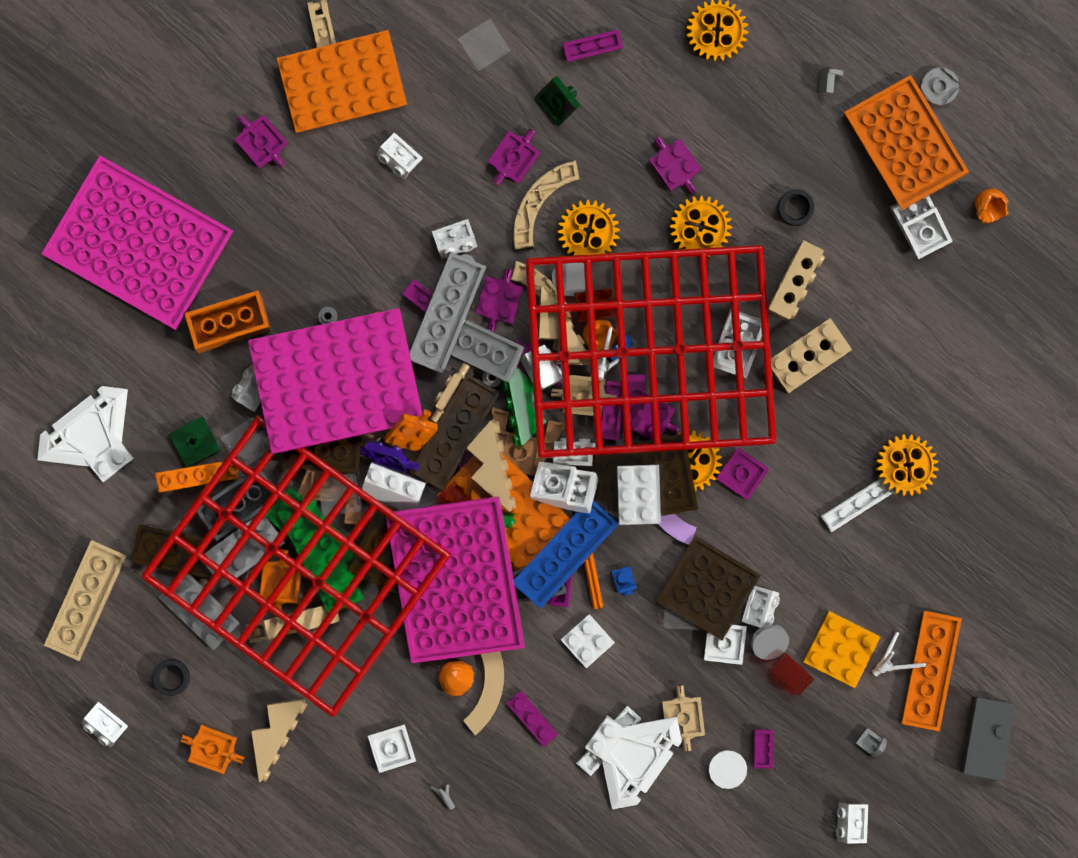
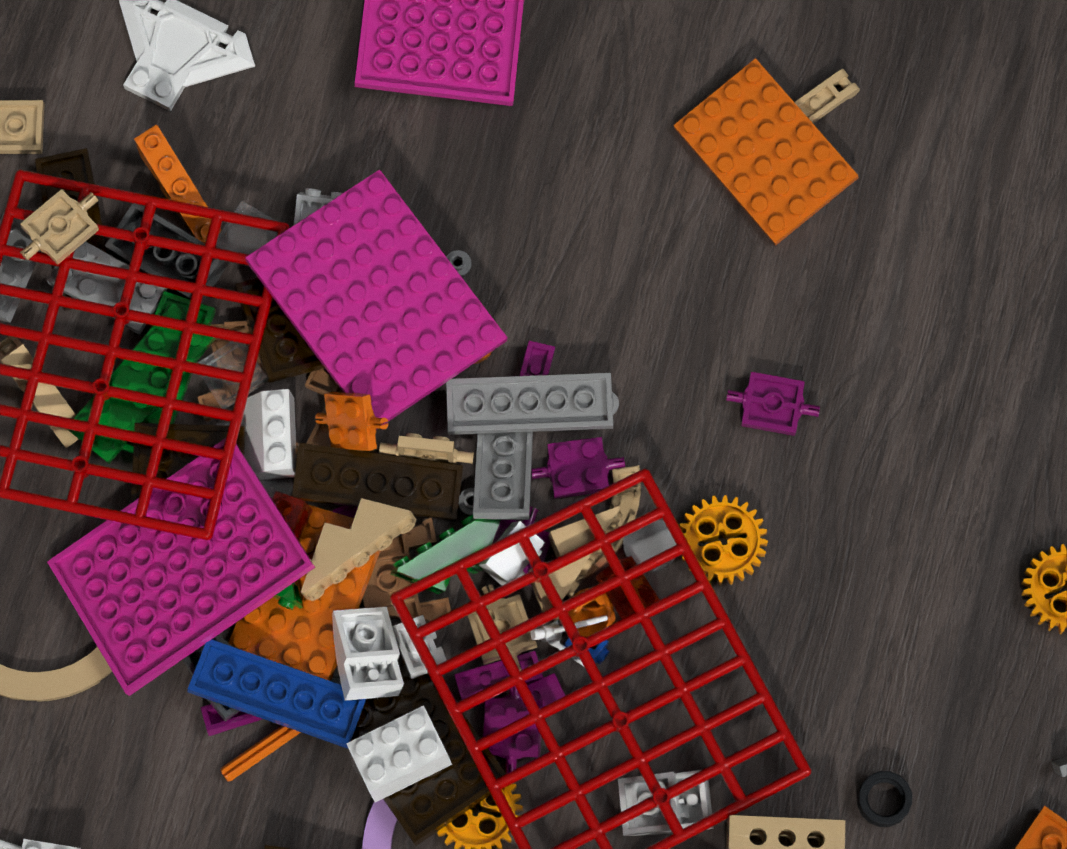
camera: 70 degrees right, 15 degrees down
(195, 441) = (224, 173): dark green tile -> none
(196, 565) = (59, 226): none -> tan plate
(228, 321) = (394, 144): orange brick -> none
(261, 141) = (642, 89): magenta plate -> none
(272, 575) = (79, 363): orange plate -> none
(389, 457) = (307, 410): dark purple plate -> none
(398, 156) = (704, 260): white bracket -> none
(454, 239) = (631, 375): white bracket -> none
(456, 677) = (51, 628): orange hair -> none
(484, 45) = (898, 305): clear tile -> none
(532, 718) = (37, 754): magenta plate -> none
(535, 198) = (732, 455): tan tile -> none
(558, 100) = (873, 424): dark green tile -> none
(587, 641) = (173, 781): white plate -> none
(592, 46) = (966, 439): magenta plate -> none
(624, 581) = (275, 794): blue bracket -> none
(675, 165) = (863, 614): magenta plate -> none
(705, 210) = (822, 680): light orange gear -> none

